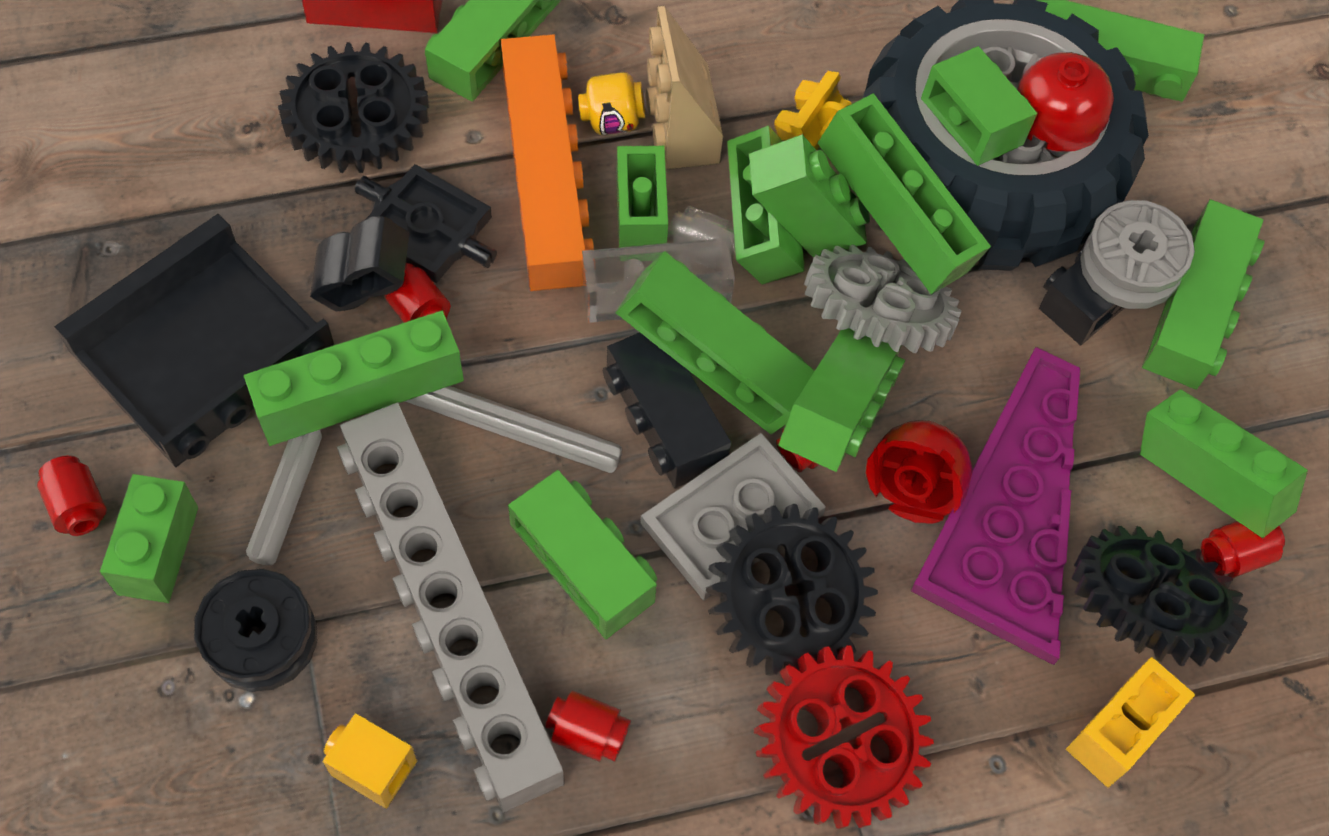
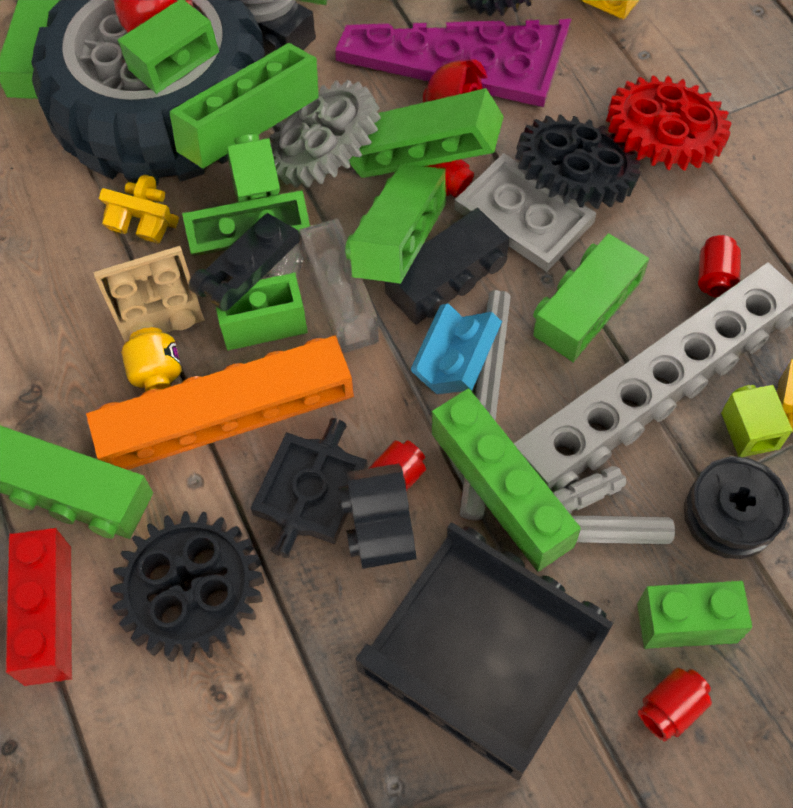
camera: 95 degrees left, 0 degrees up
(329, 477) = (591, 489): none -> light grey axle
(357, 686) = (756, 420): none -> lime brick
(547, 384) = (455, 350): none -> dark azure bracket
(688, 176) = (245, 262): none -> black plate

